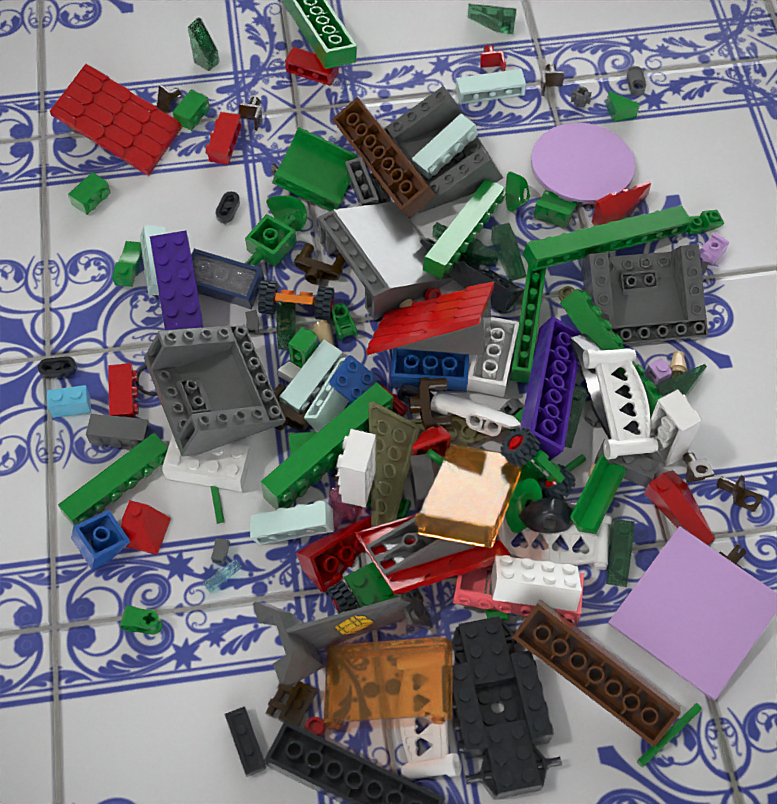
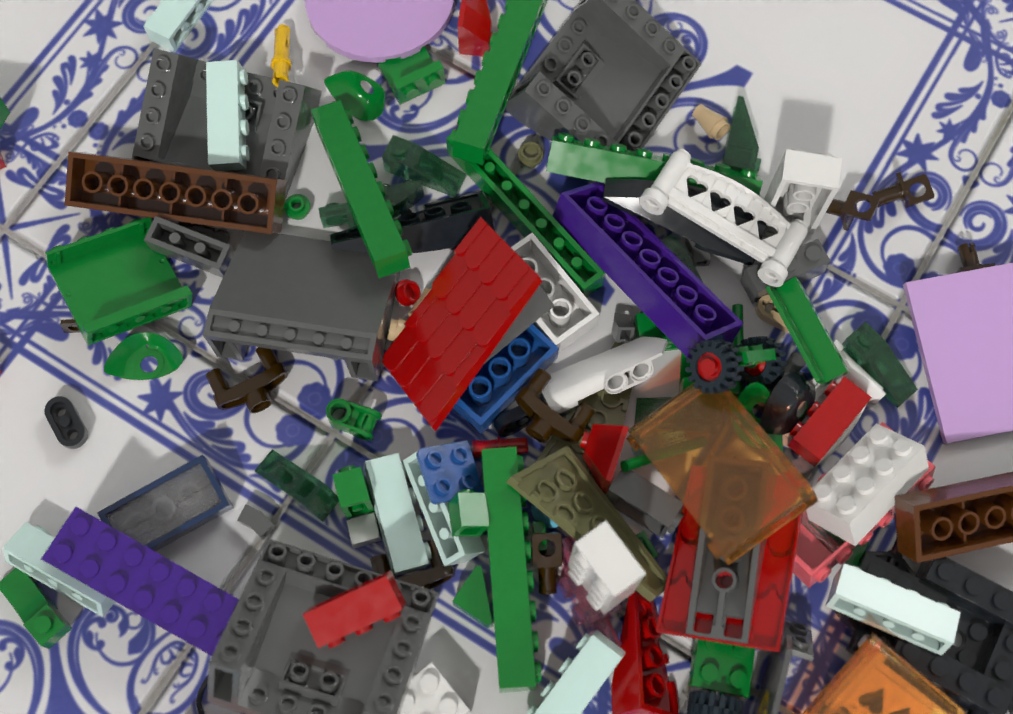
camera: 50 degrees left, 10 degrees up
(241, 383) = (355, 610): none -> red brick
(270, 296) = (276, 446): black plate -> none
(271, 240) = (150, 405): green brick -> none
(323, 331) = (347, 452): tan cone -> none
(337, 402) = (468, 514): none -> brick
(430, 216) = (299, 213): none -> green plate
(474, 643) = (893, 609): none -> light aqua brick
(499, 146) = (280, 62): none -> yellow pin
(557, 544) = (828, 420): none -> red brick
(660, 370) = (708, 143): lavender brick -> none
(677, 503) = (871, 262): red wedge -> none

